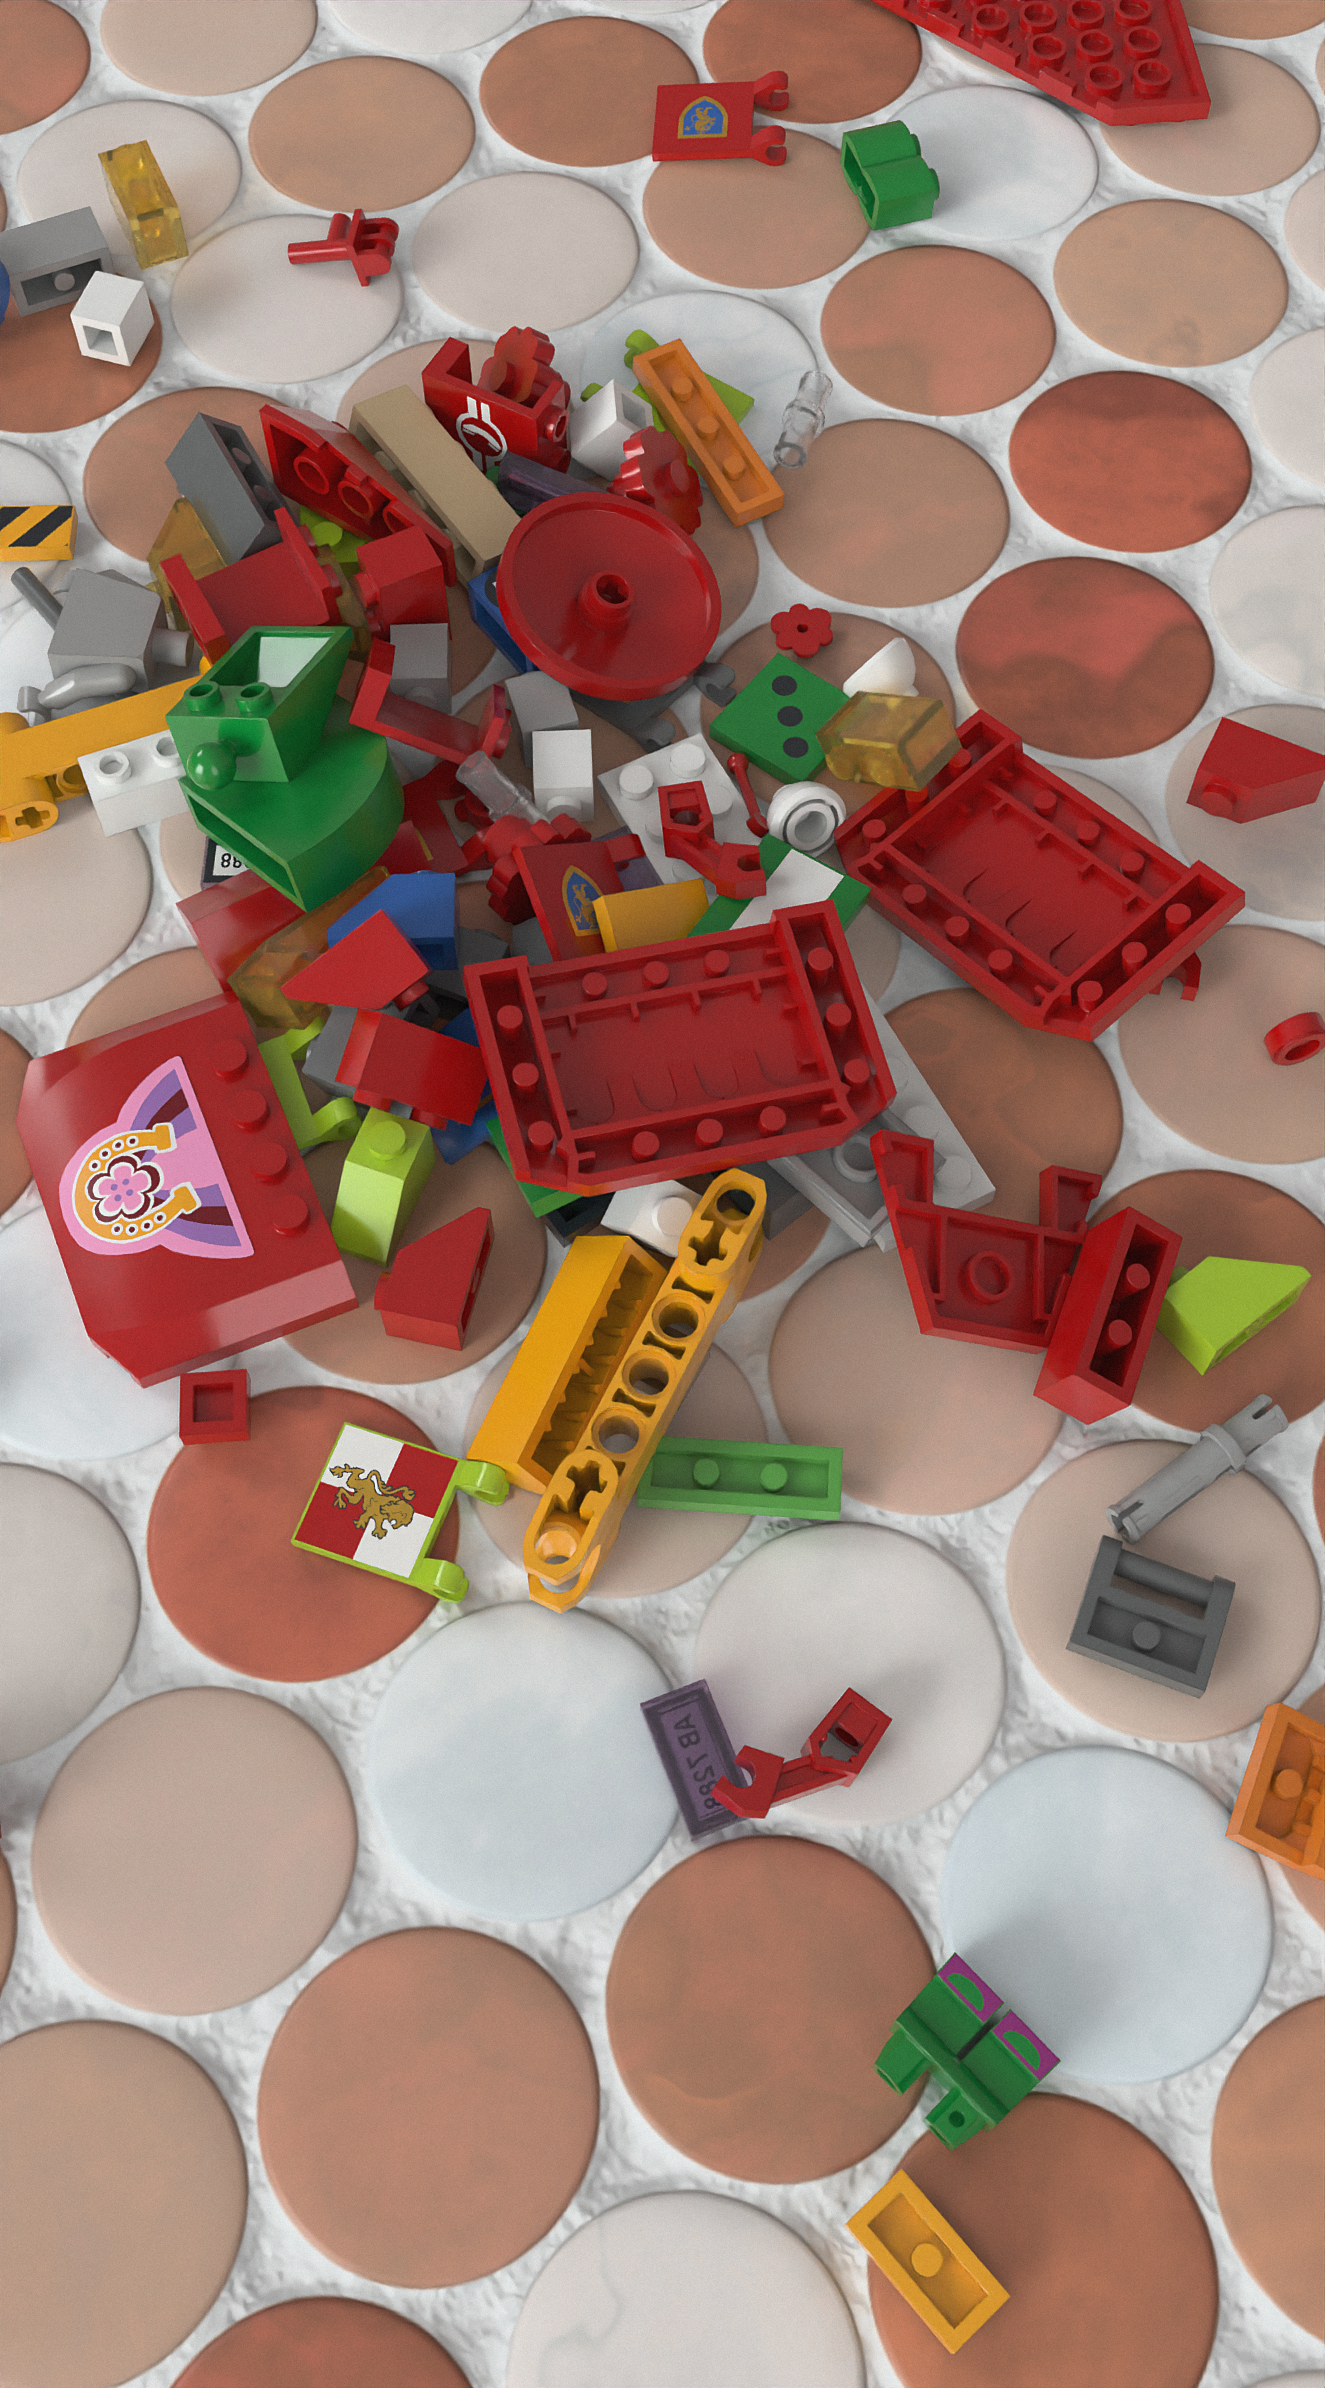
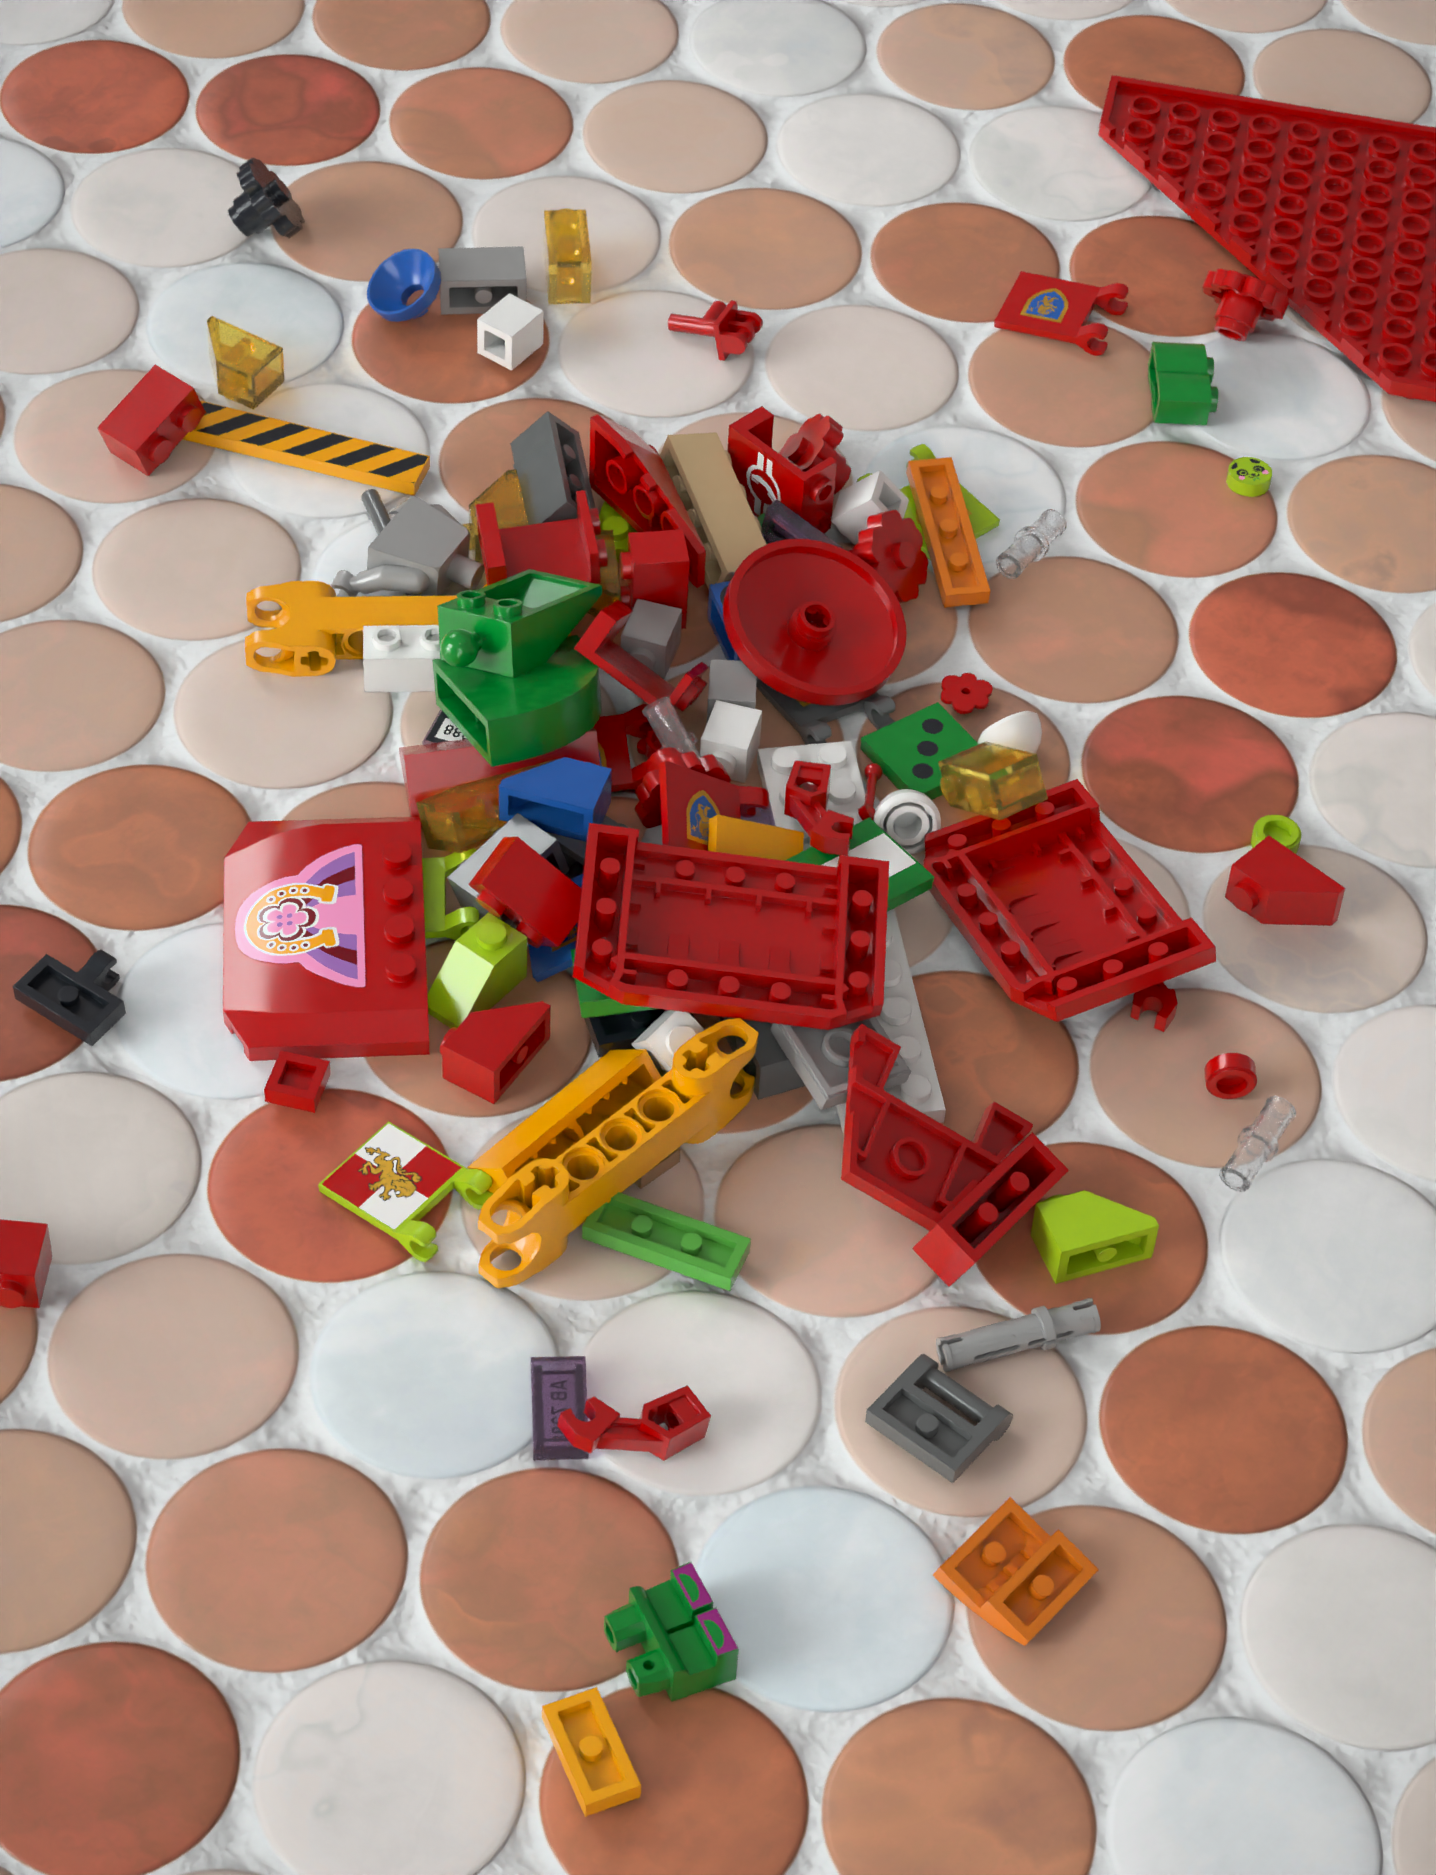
camera: 15 degrees right, 15 degrees down
(365, 969) = (517, 807): red slope -> none
(919, 57) = (1242, 302): none -> red plant
(1003, 268) = (1249, 476): none -> lime tile
(1209, 704) = (1279, 828): none -> lime tile

